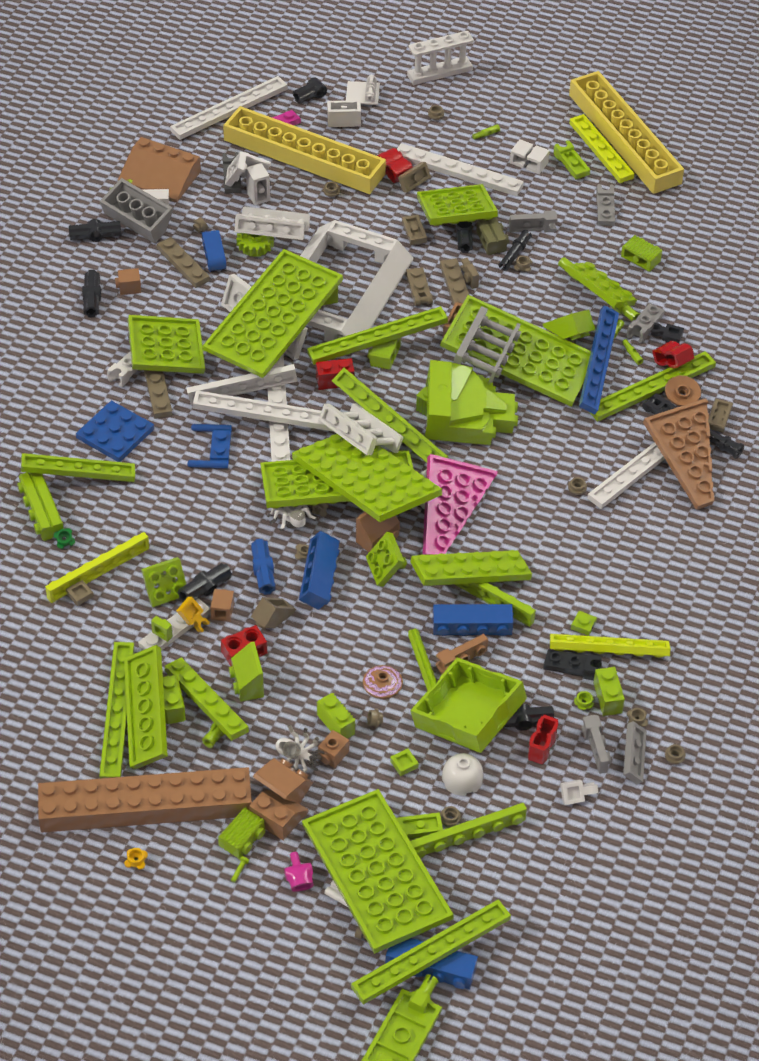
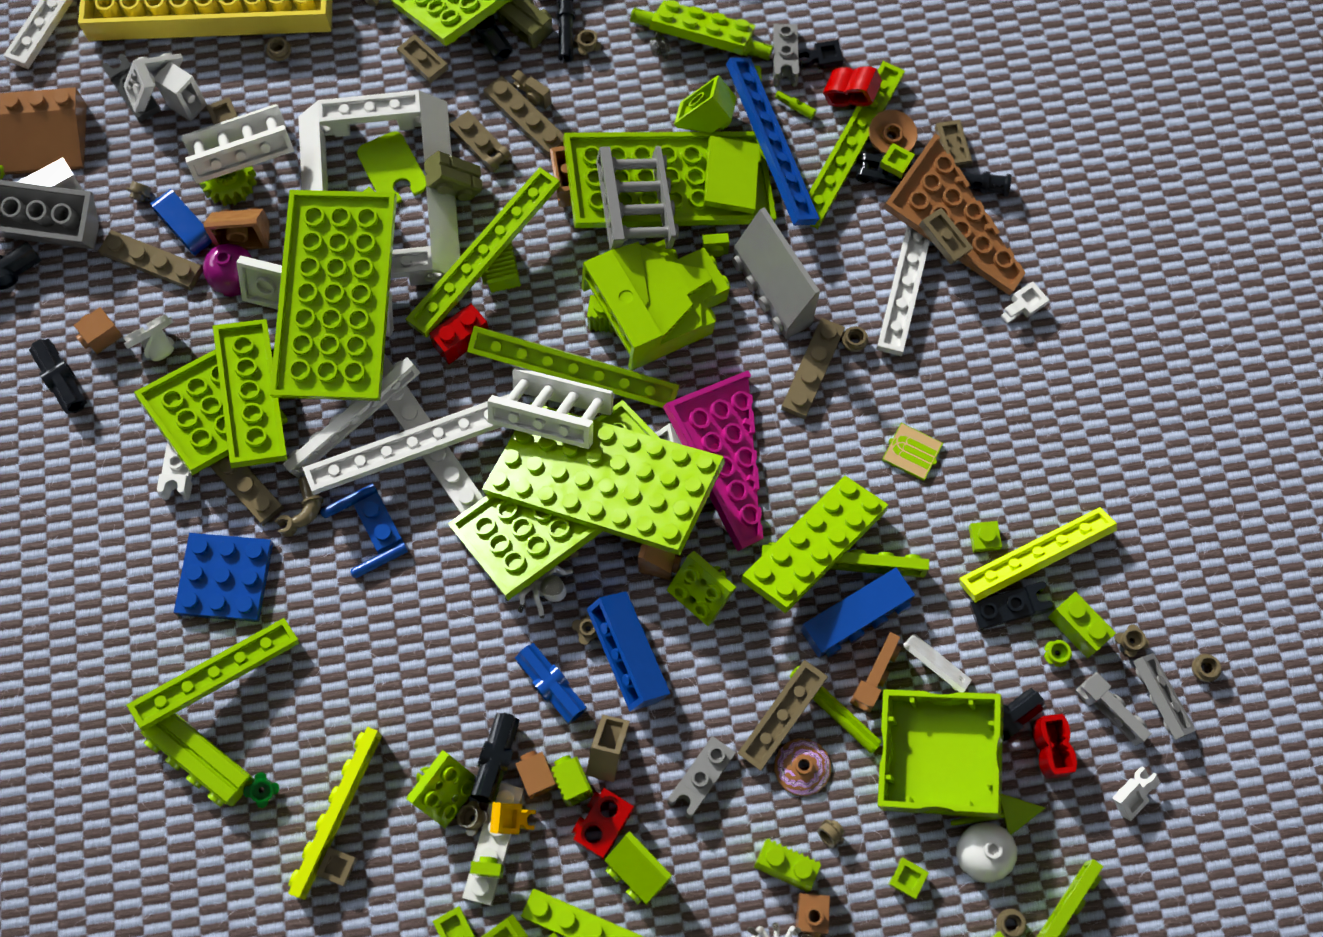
camera: 30 degrees left, 20 degrees up
(156, 296) = (154, 340): none -> white plate
(170, 607) = (465, 815): none -> dark tan plate
(186, 351) = (249, 411): none -> lime plate
(187, 420) = (311, 507): none -> dark tan piece
(217, 282) = (221, 268): none -> magenta cylinder
(239, 611) = (571, 780): none -> lime brick
(243, 266) = (240, 227): none -> medium nougat slope
(275, 204) = (221, 111): none -> dark tan plate
(317, 654) = (702, 775): none -> light grey plate
(355, 274) = (391, 161): none -> lime piece
(387, 292) = (453, 176): none -> olive brick
(388, 644) = (782, 715): none -> dark tan plate
(495, 767) = (1015, 812): none -> lime piece
(499, 658) = (937, 663): none -> white container
(525, 398) = (716, 244): none -> lime plate
(539, 490) = (813, 368): none -> dark tan plate
(546, 428) = (776, 276): none -> light grey slope
(559, 364) = (731, 174): none -> lime tile
(566, 284) = (659, 46): none -> clear smoke plate
(571, 560) = (912, 451): none -> piece
(670, 451) = (946, 236): none -> dark tan plate
(671, 401) = (897, 160): none -> lime plate
(703, 515) = (1026, 301): none -> white plate

